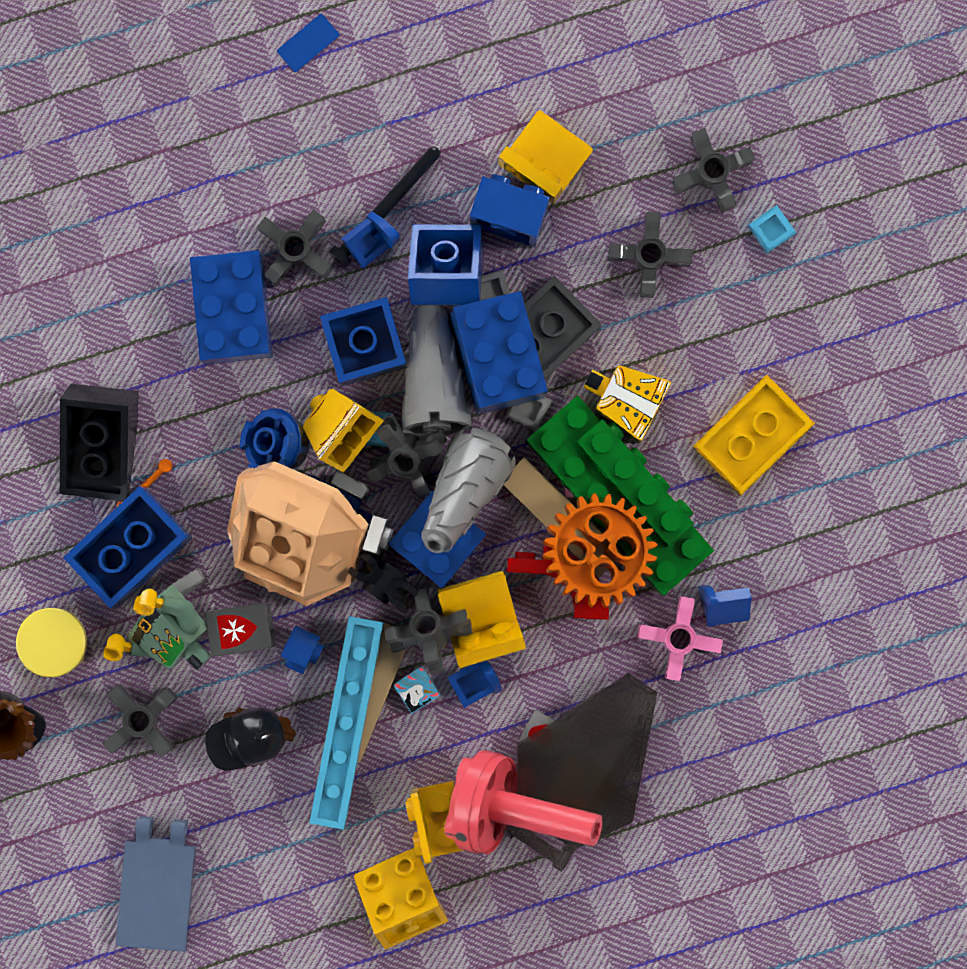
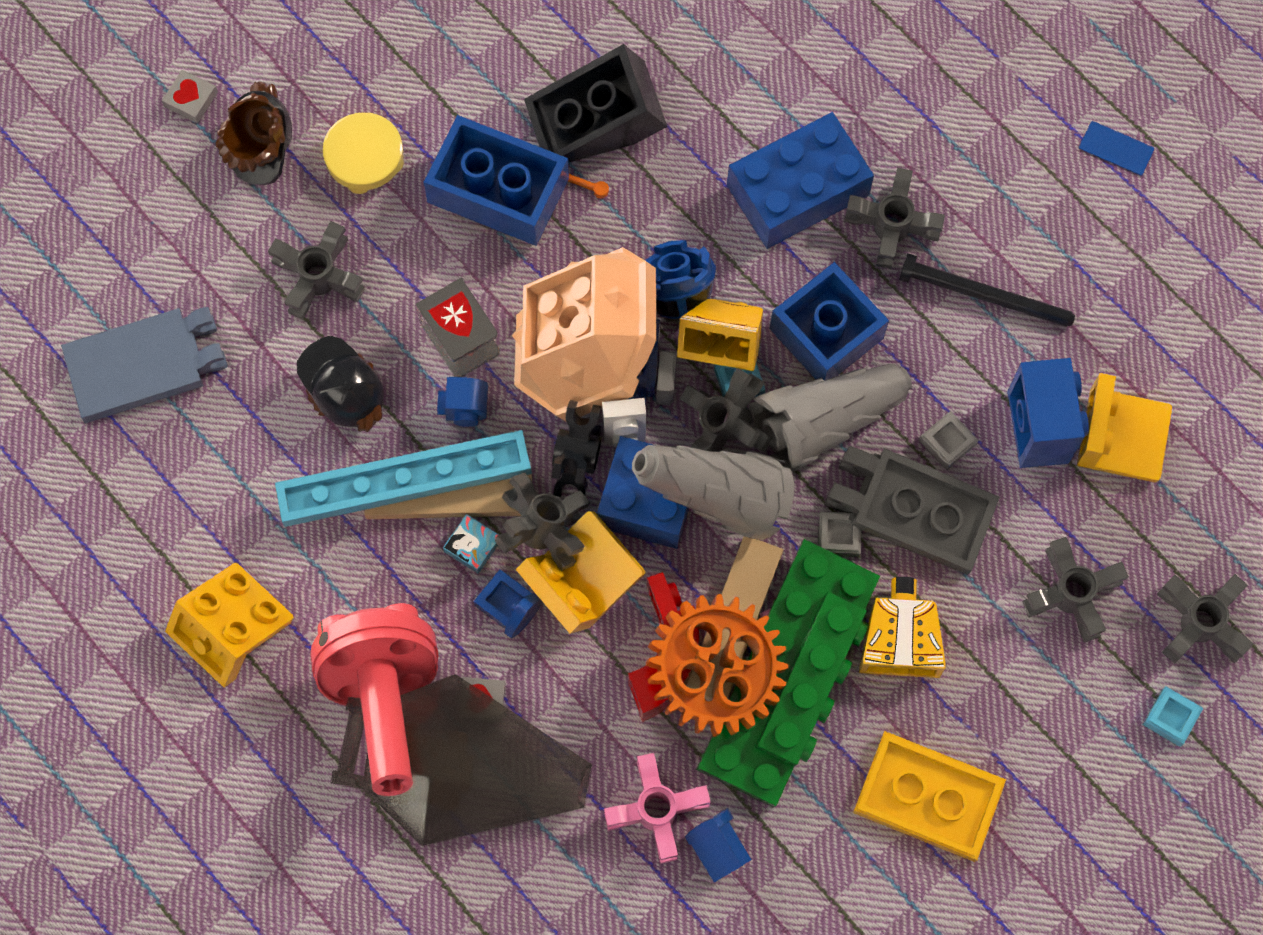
camera: 60 degrees right, 15 degrees down
(164, 632) = (423, 247): torso -> none
(190, 582) = (484, 257): light grey tile -> none
(370, 239) = (941, 288): blue tile -> none
(430, 809) = (336, 595): yellow bracket -> none
(445, 264) = (954, 370): blue brick -> none
(498, 352) = (885, 462): blue brick -> none

